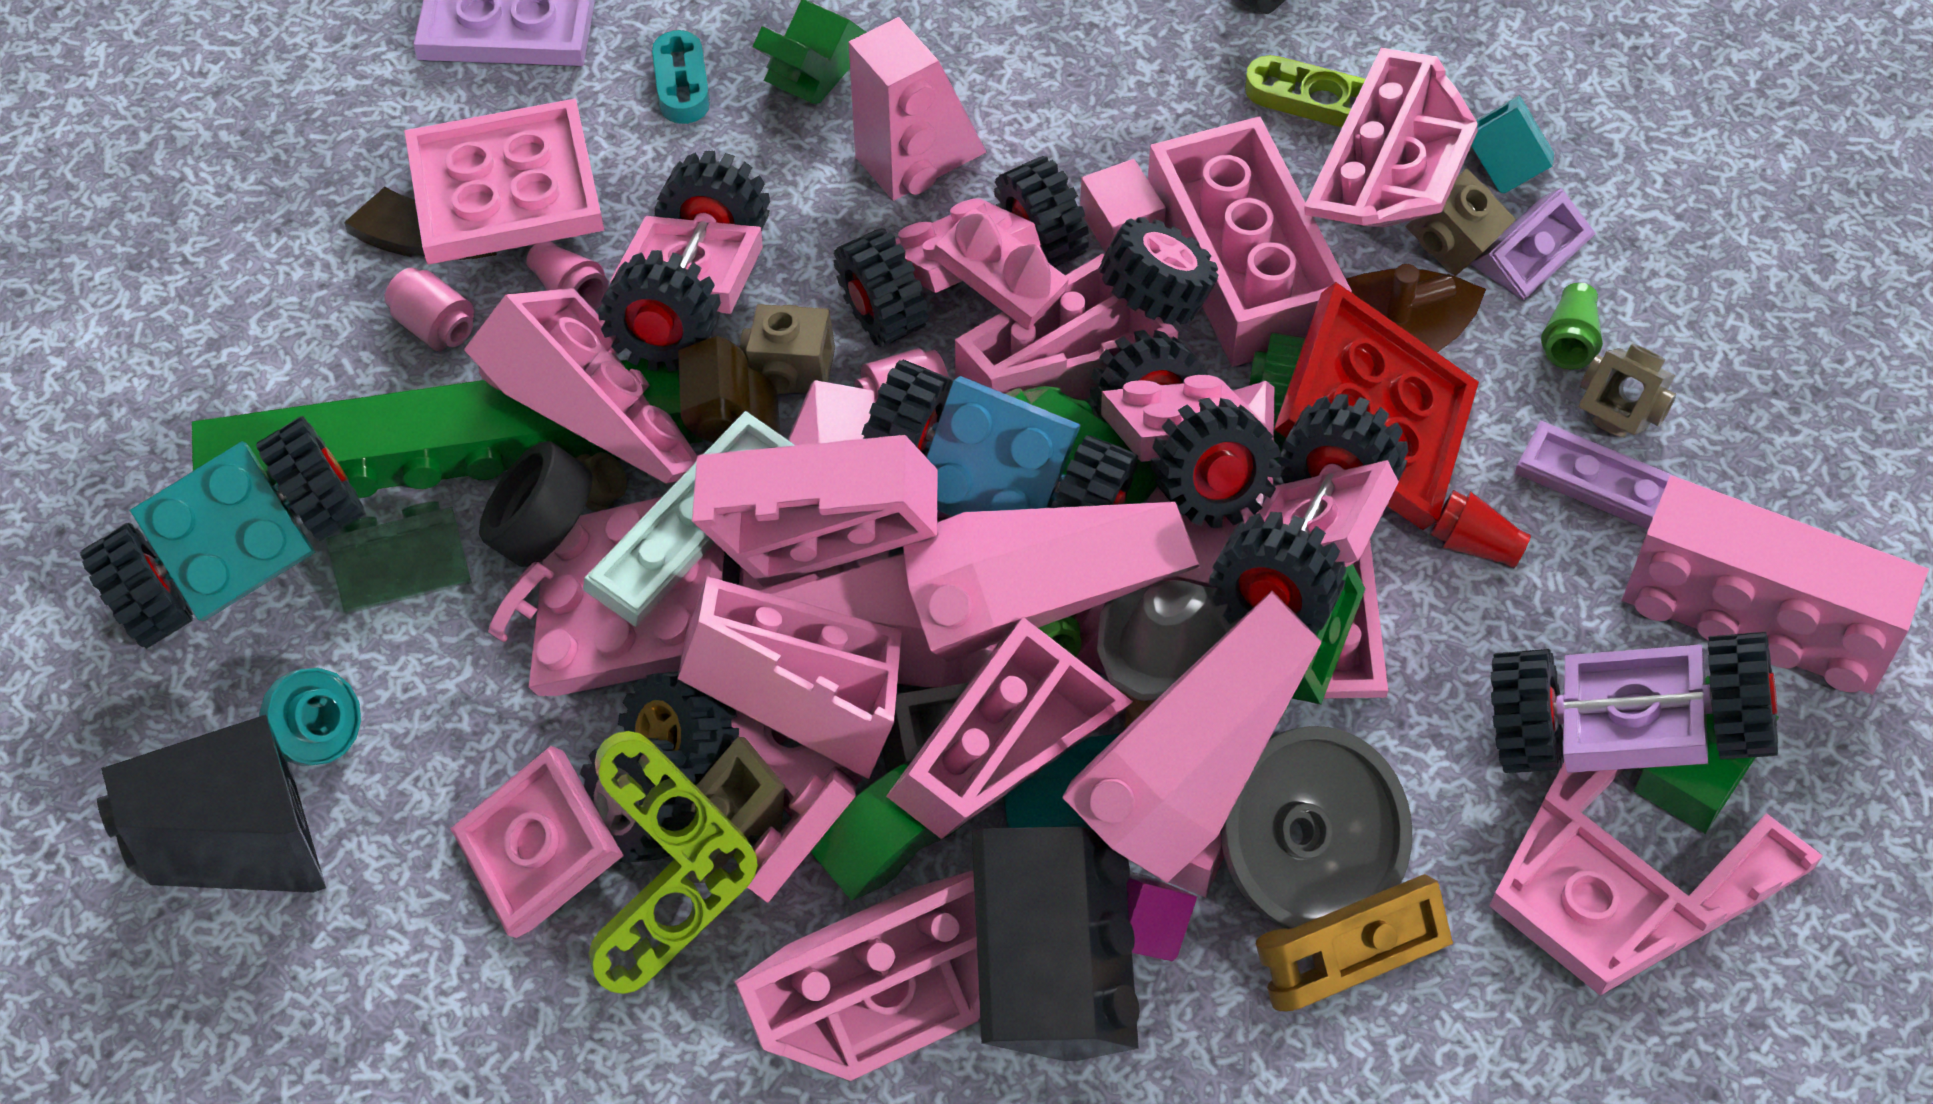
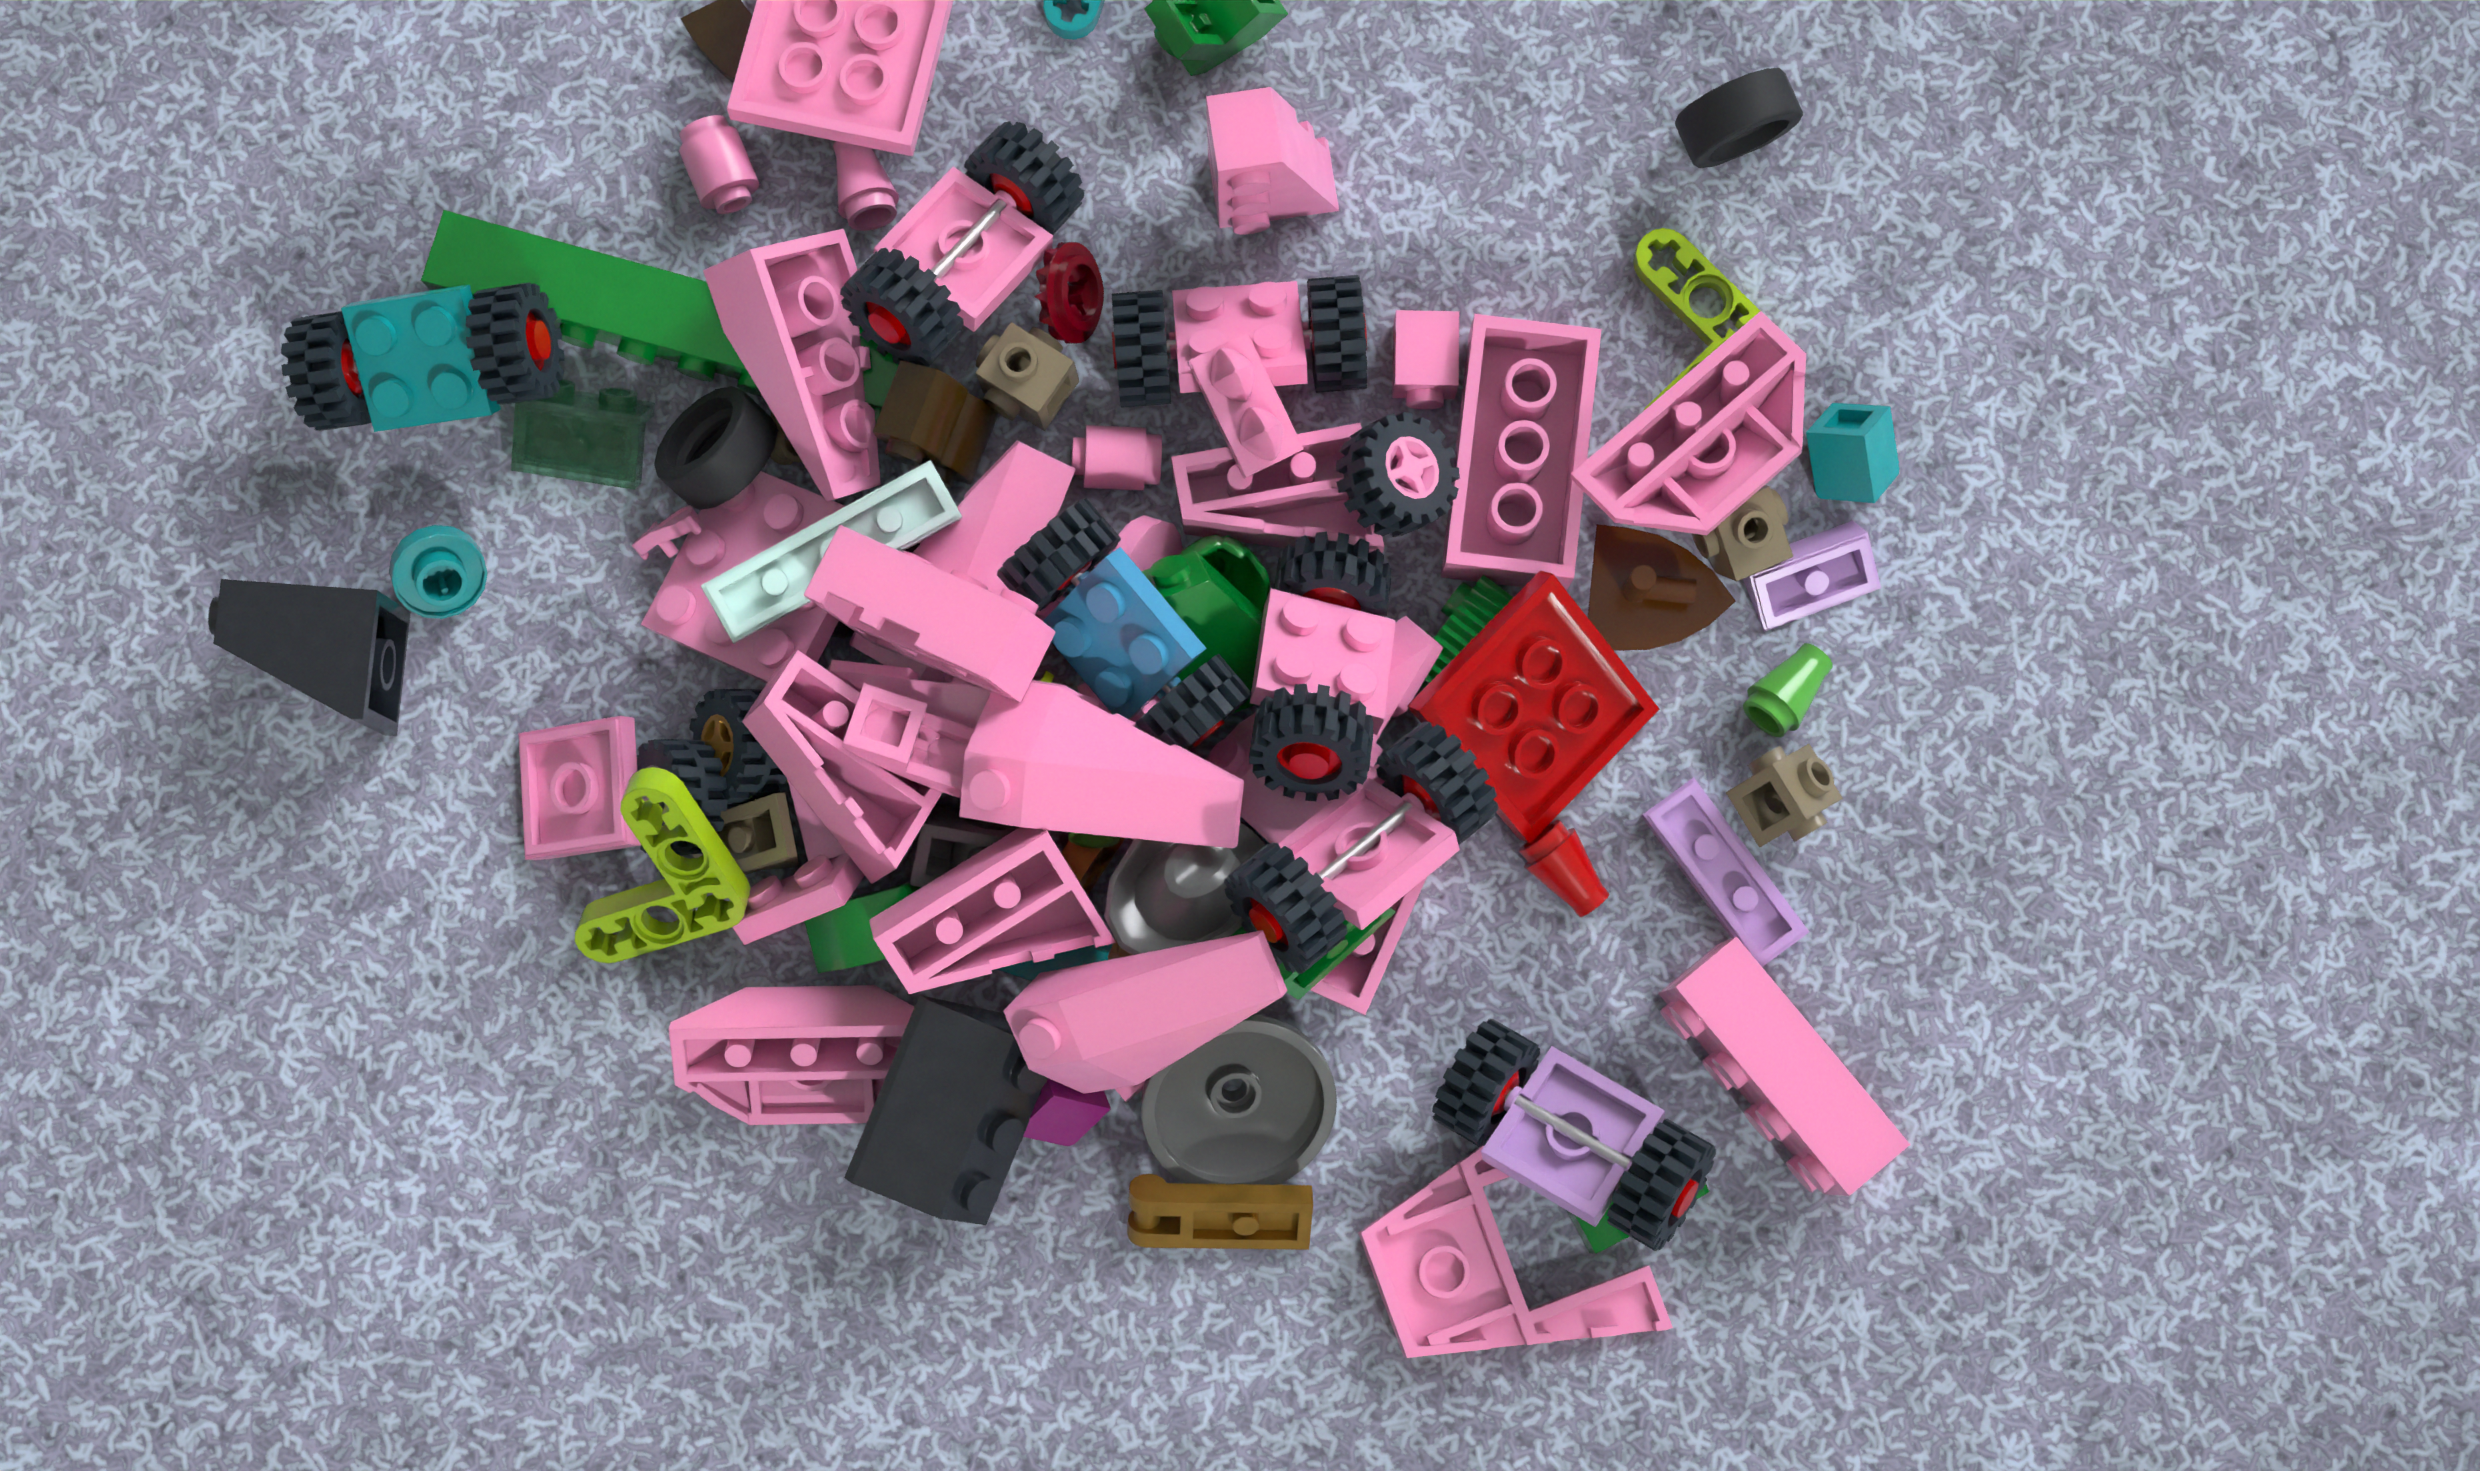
camera: 25 degrees right, 25 degrees up
(793, 271) = (1071, 307): none -> dark red gear
(835, 615) = (907, 740): none -> bright pink slope

